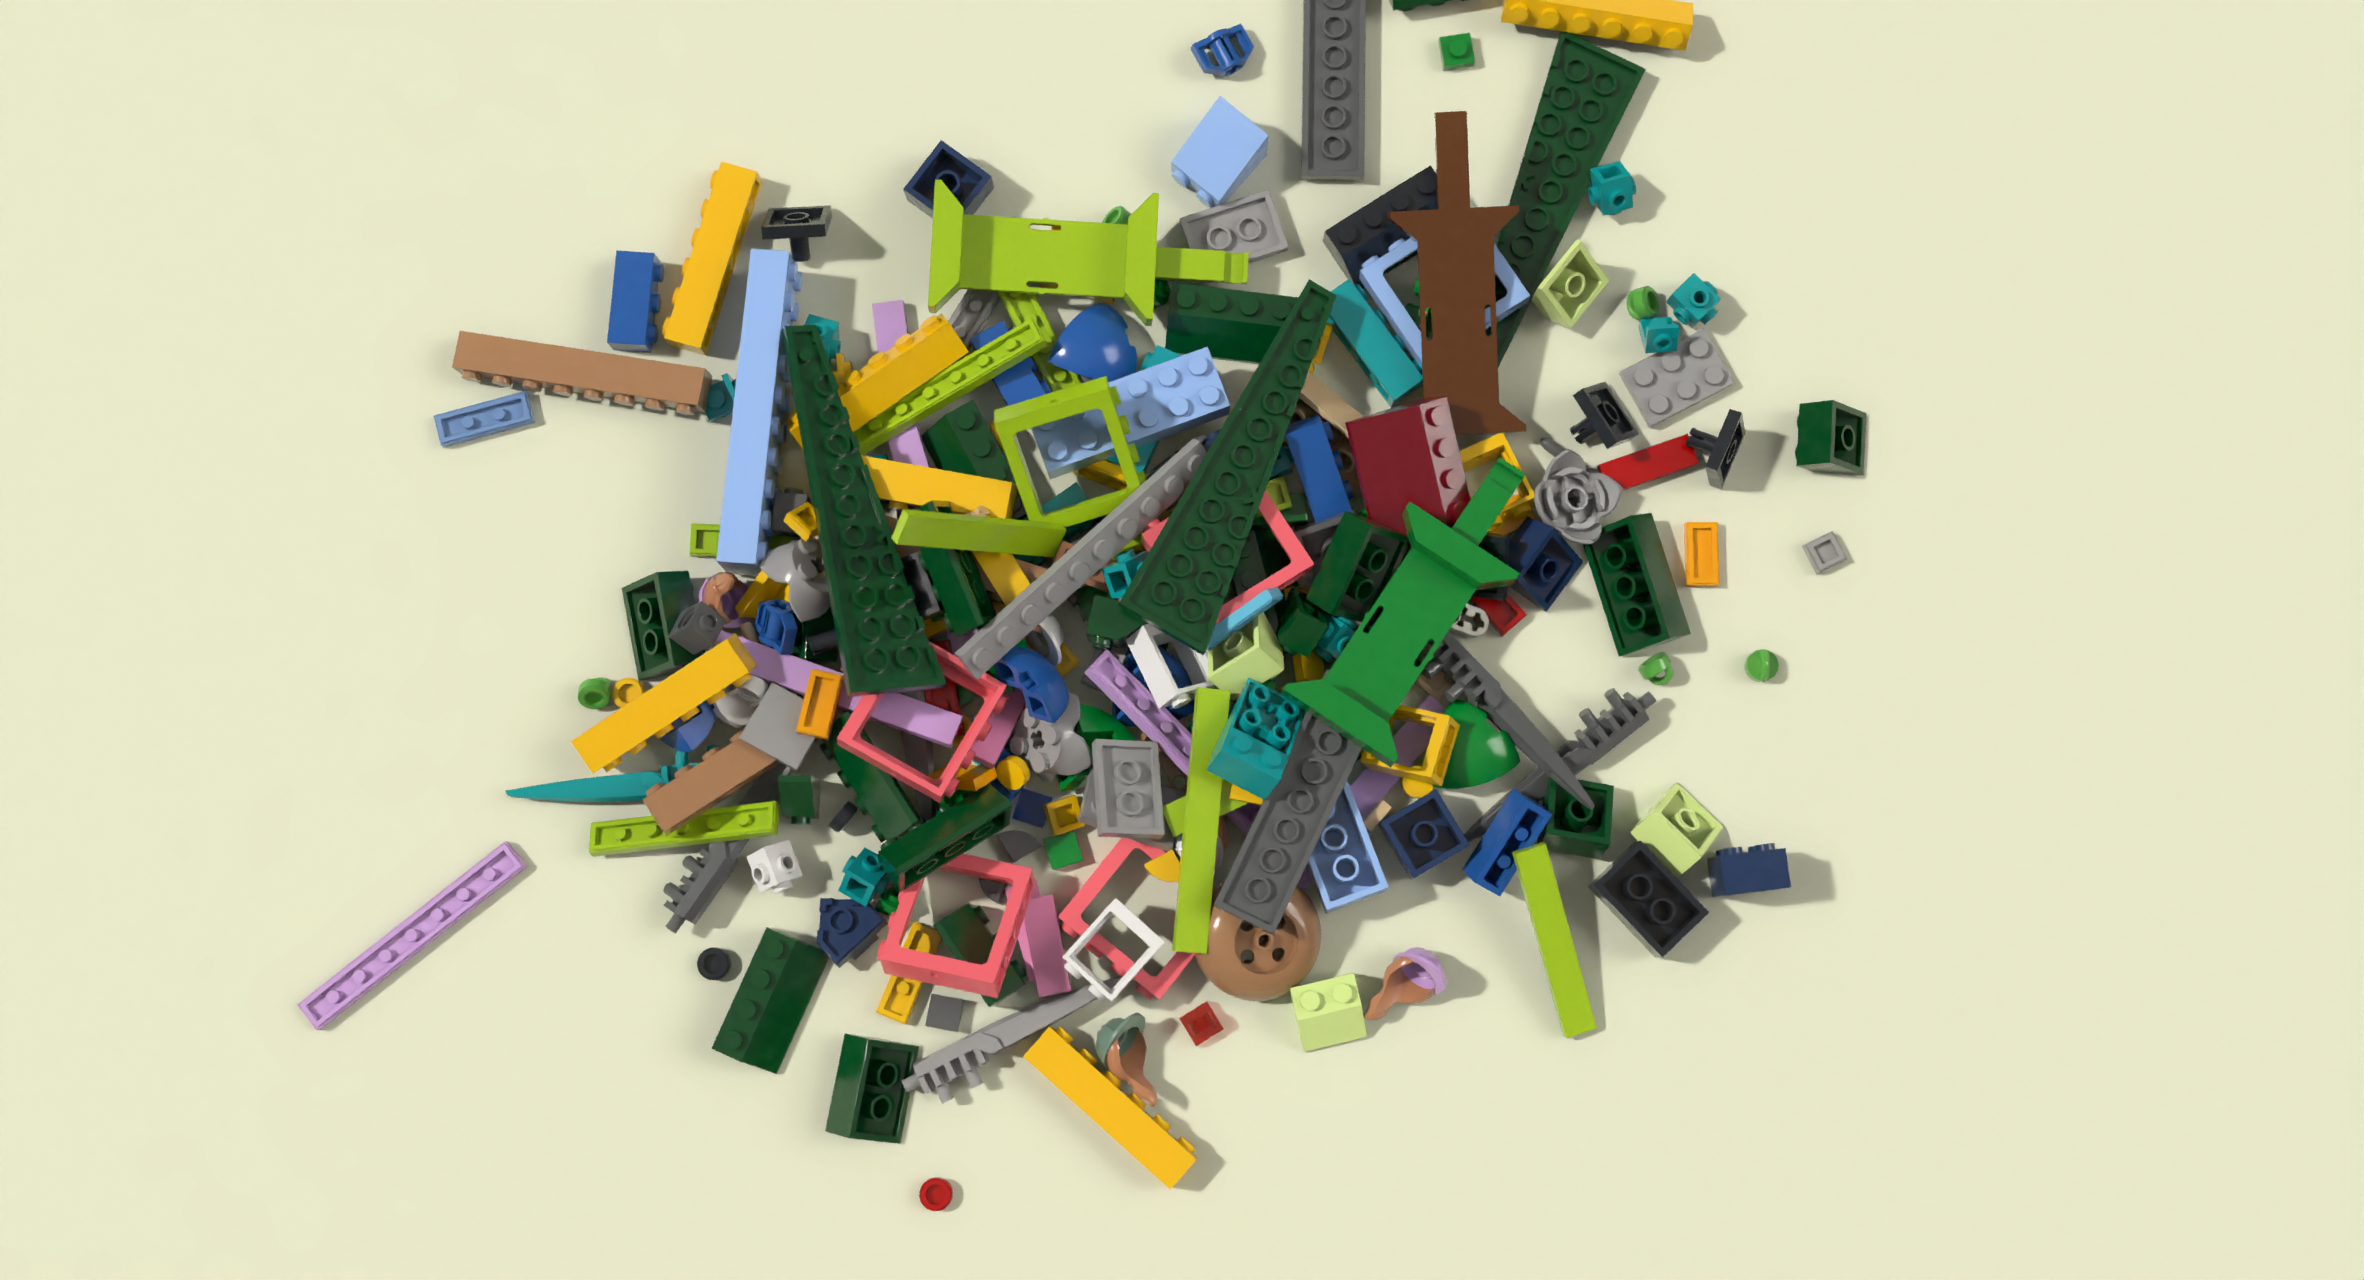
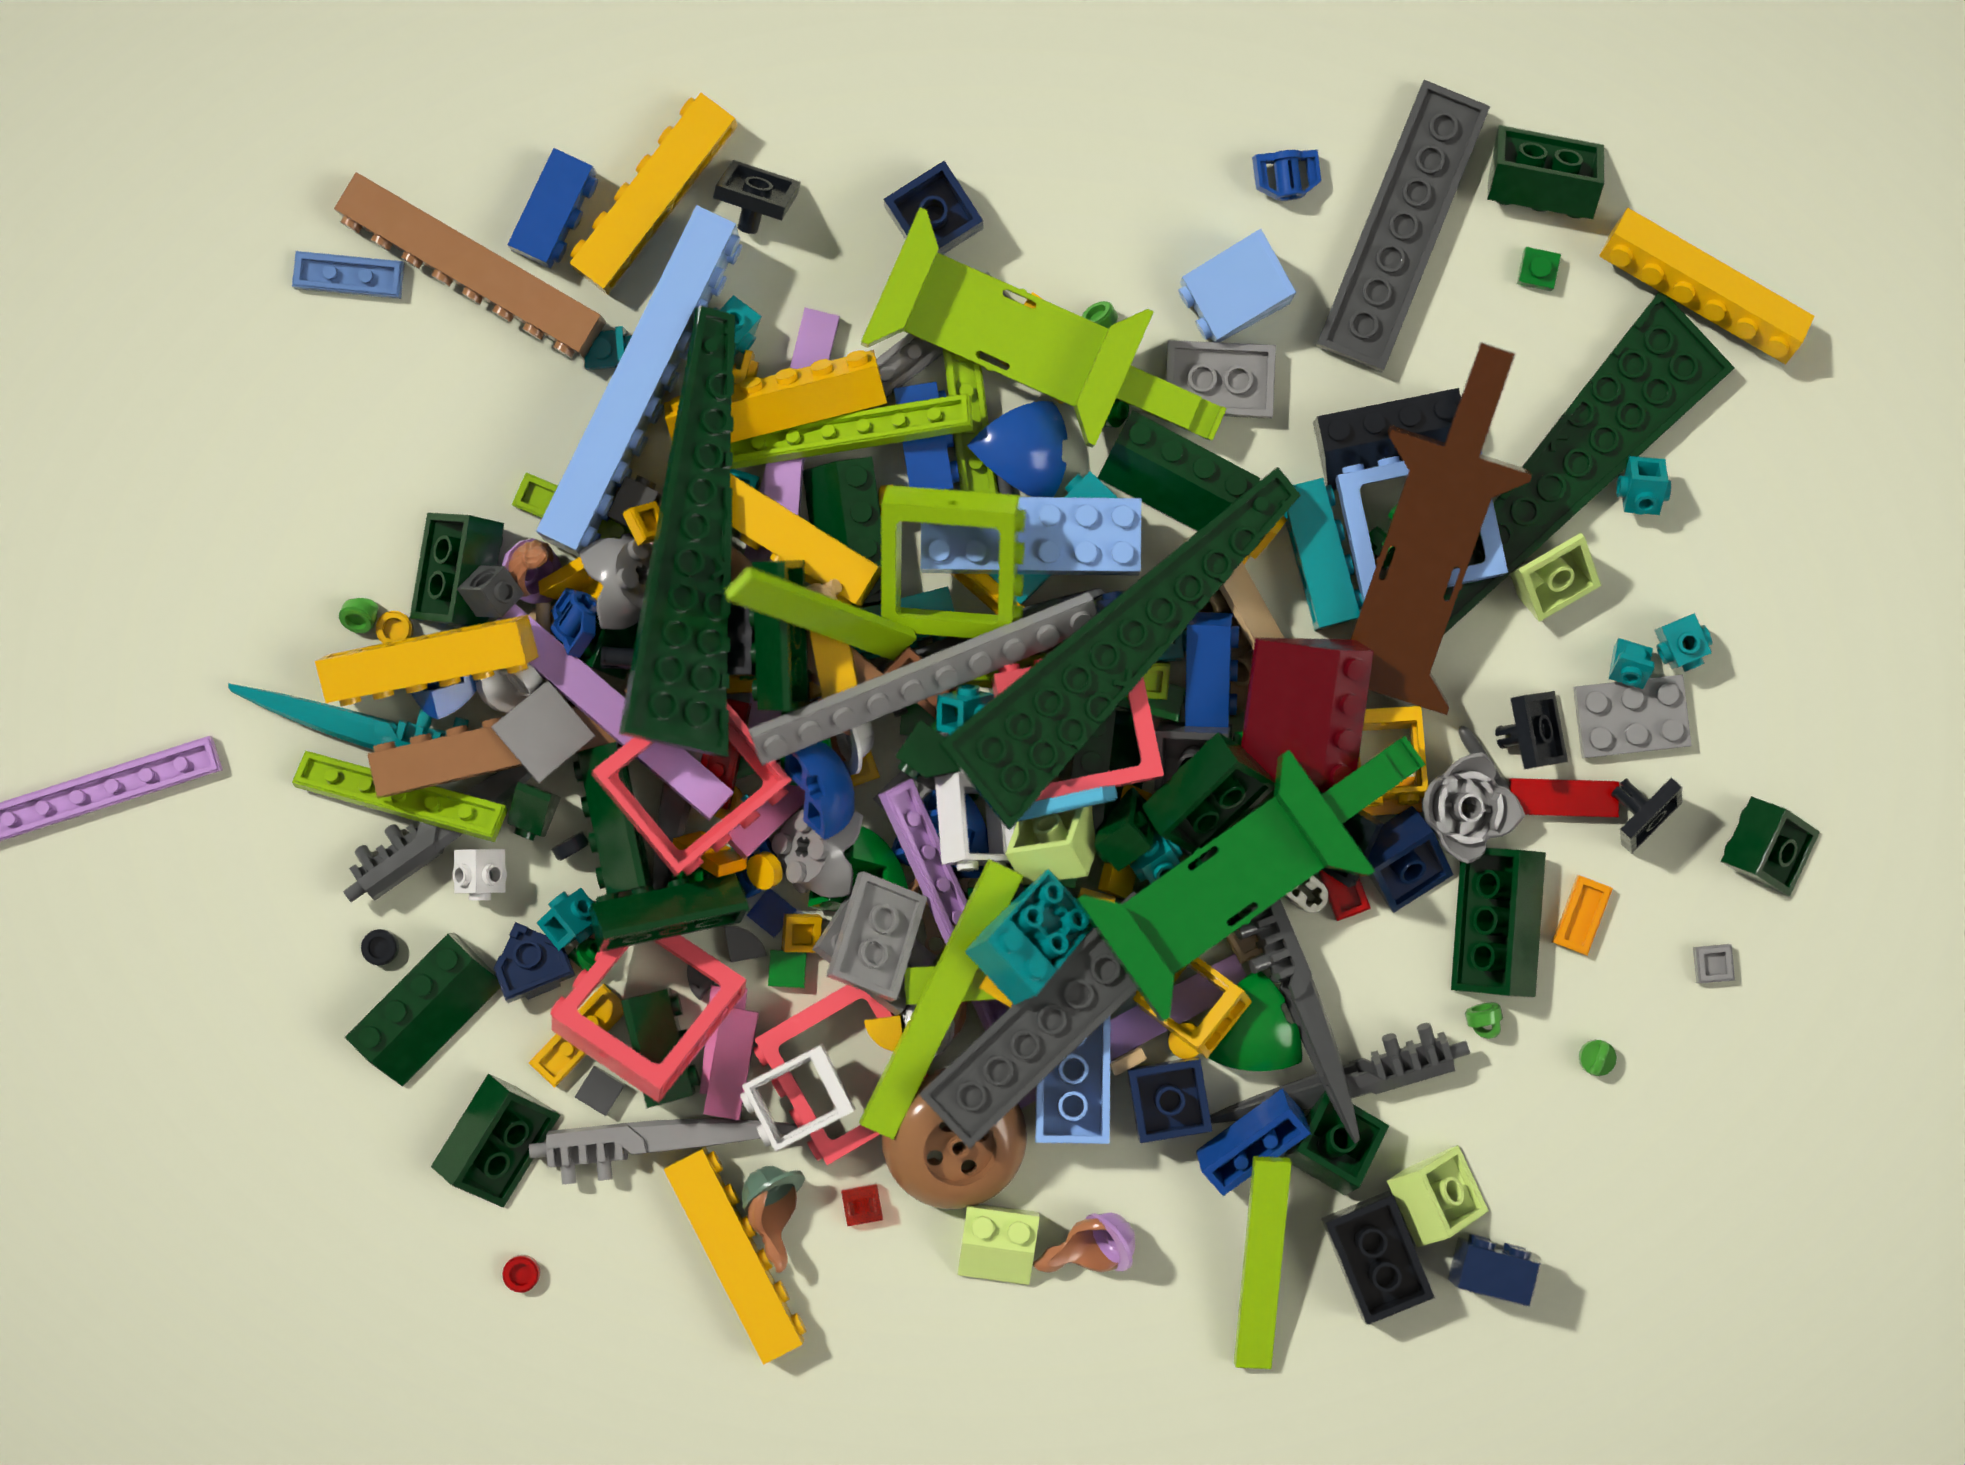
camera: 20 degrees right, 5 degrees up
(820, 704) = (589, 723): light orange tile -> none
(1643, 303) = (1628, 622): bright green tile -> none

